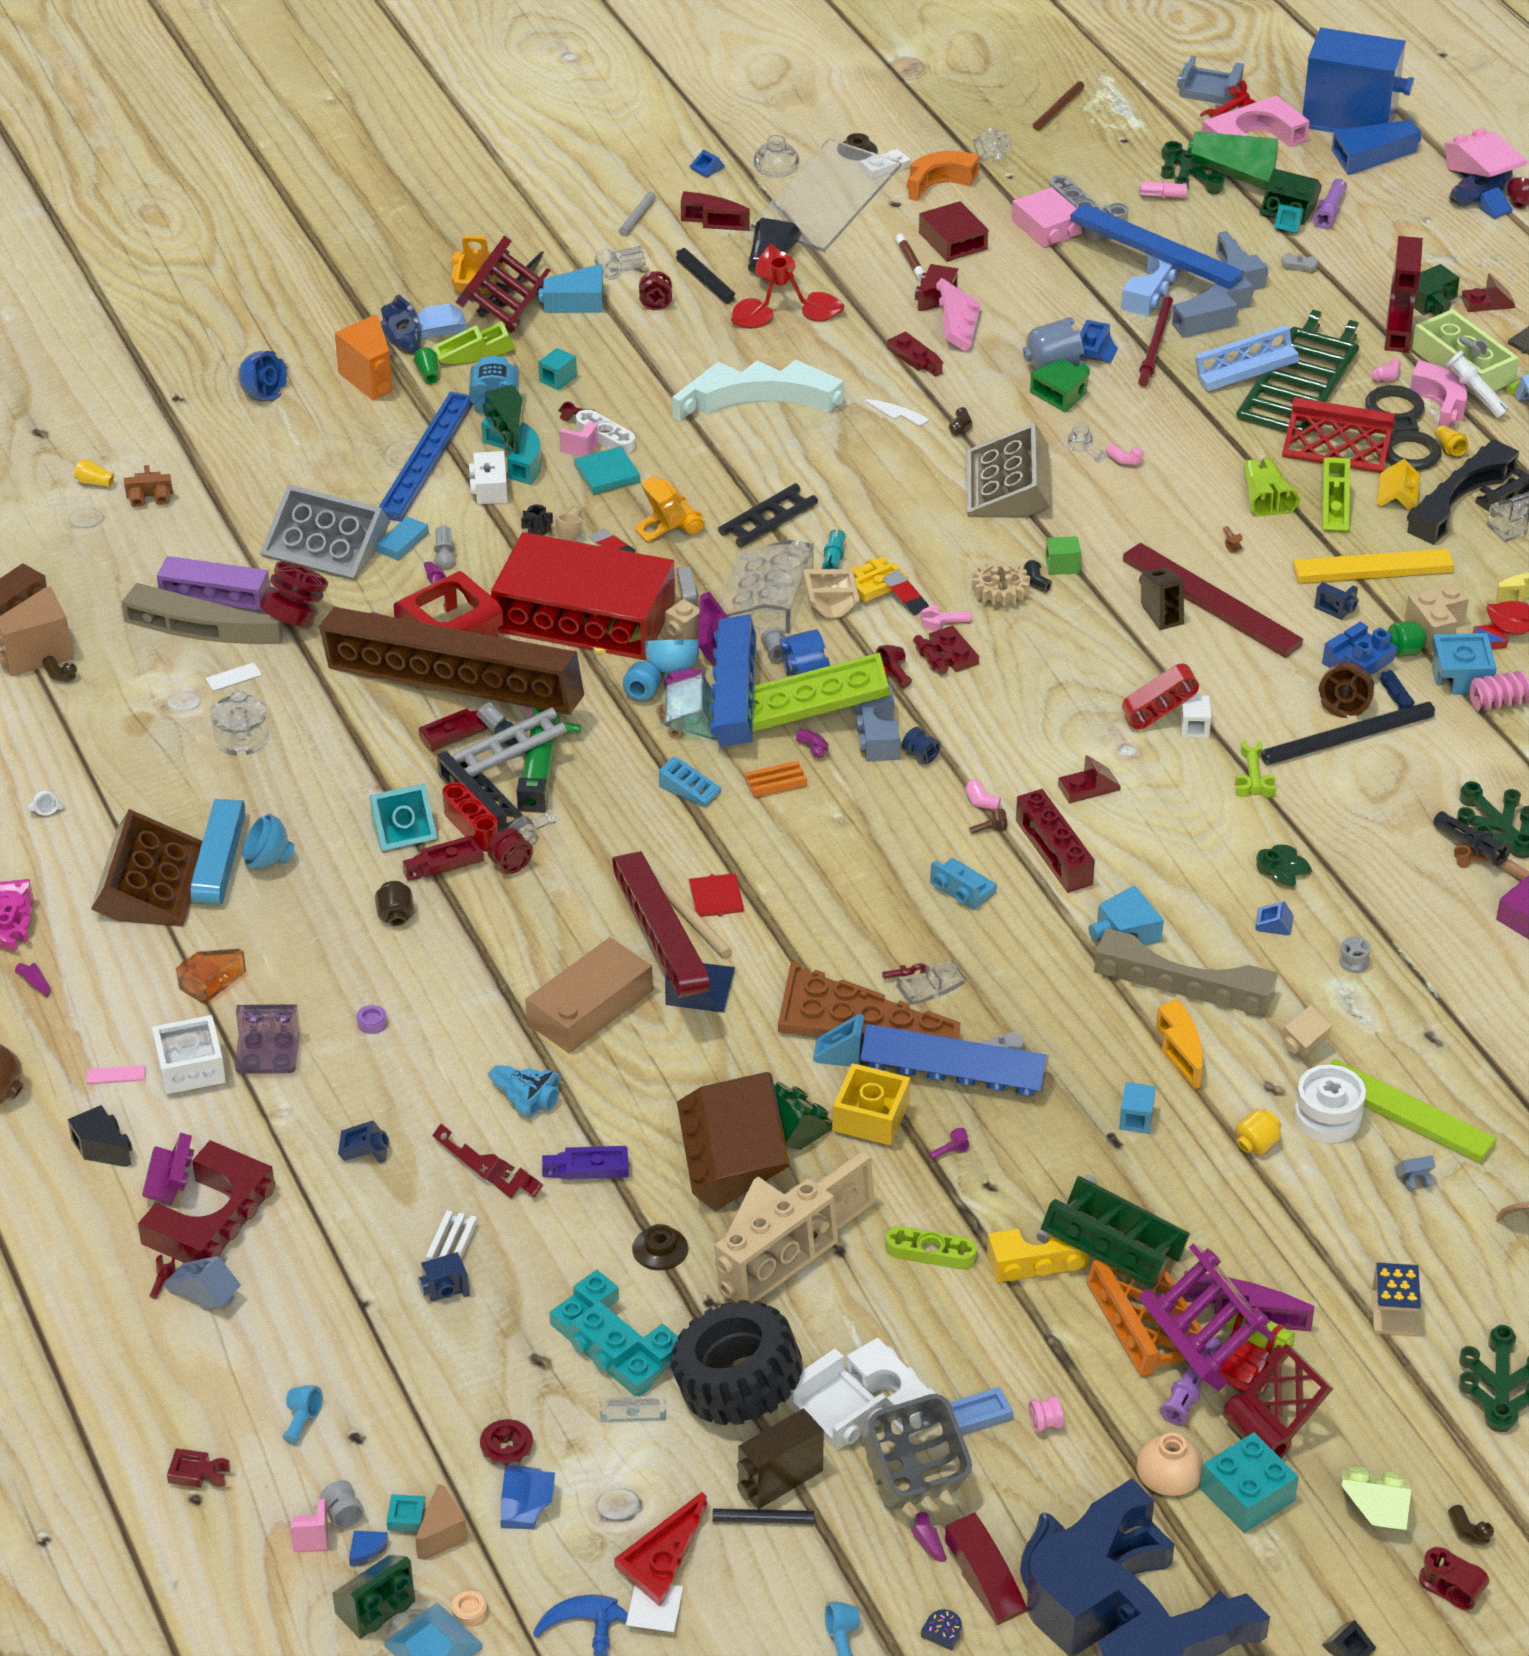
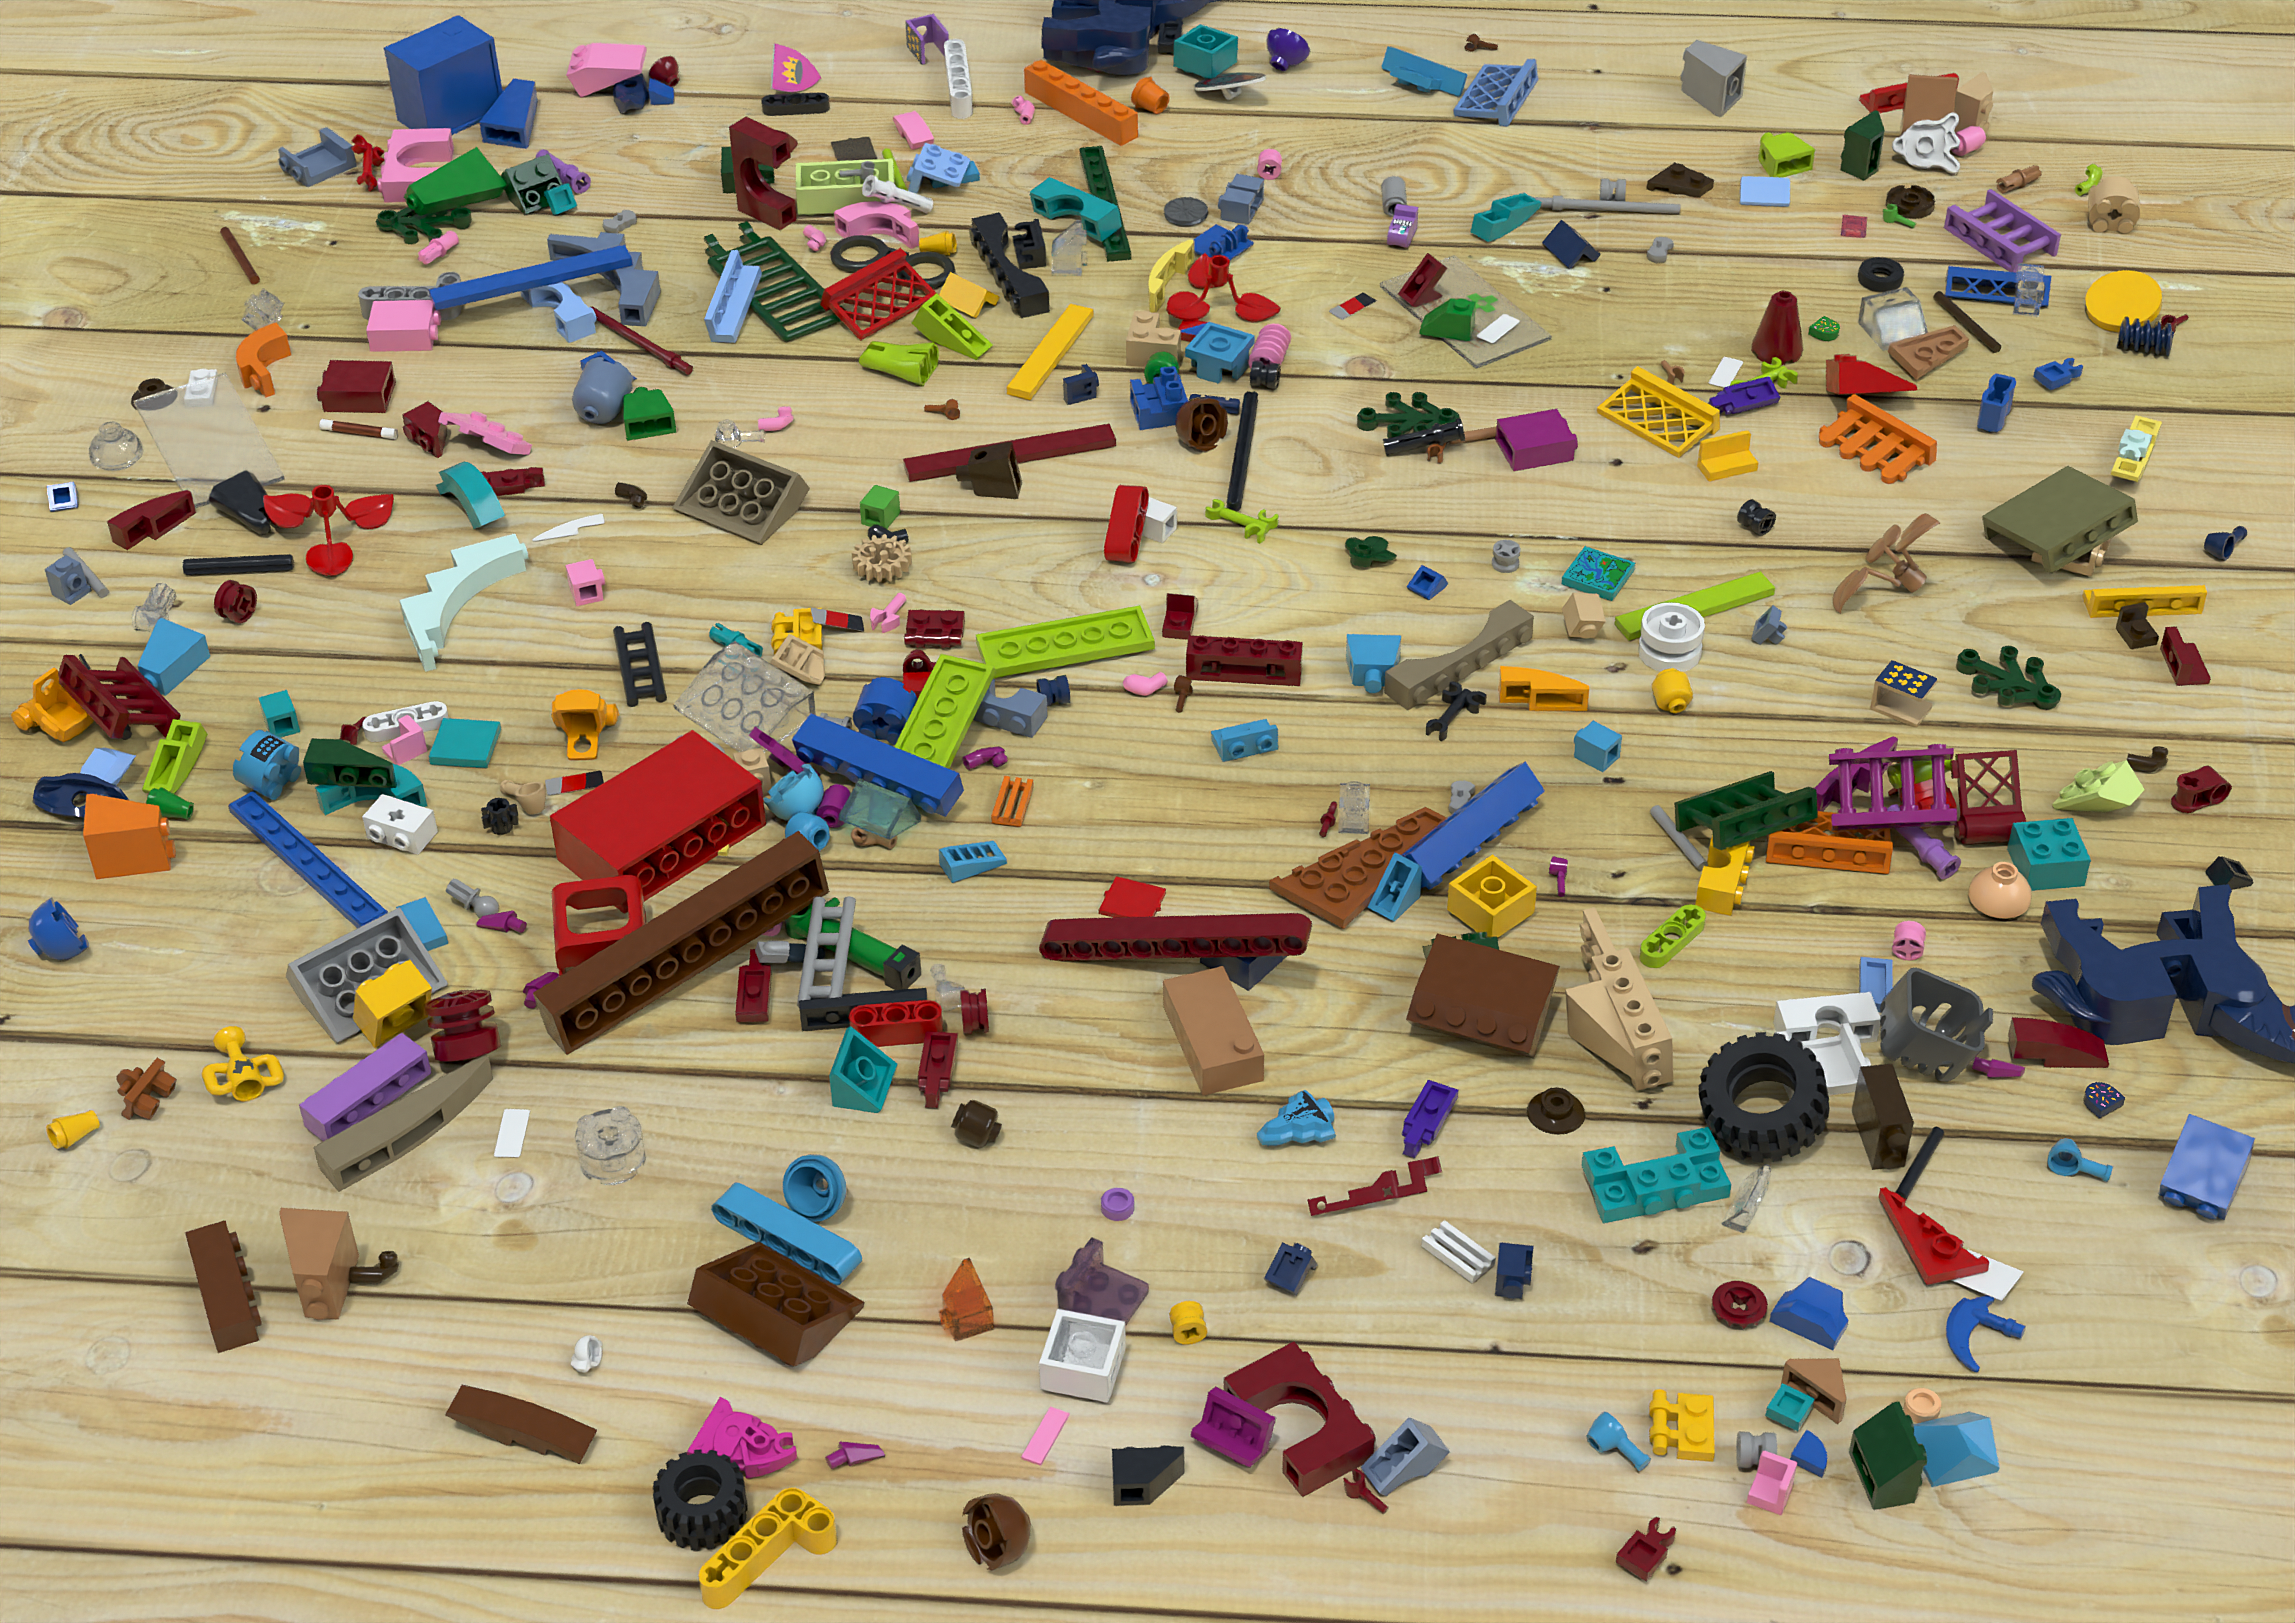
camera: 60 degrees left, 0 degrees up
(194, 521) = (242, 1072): none -> yellow piece
(266, 1104) = (1188, 1322): none -> yellow wheel
(293, 545) = (391, 1002): none -> yellow brick
(351, 1458) = (1694, 1425): none -> yellow plate
(613, 207) = (67, 580): none -> sand blue brick
(829, 443) = (585, 582): none -> bright pink brick
(870, 338) = (473, 492): none -> teal arch
(992, 728) = (1066, 641): none -> lime plate
(1132, 998) = (1458, 700): none -> black bar
(1392, 1027) = (1598, 573): none -> teal tile
(1464, 703) = (1266, 375): none -> black wheel

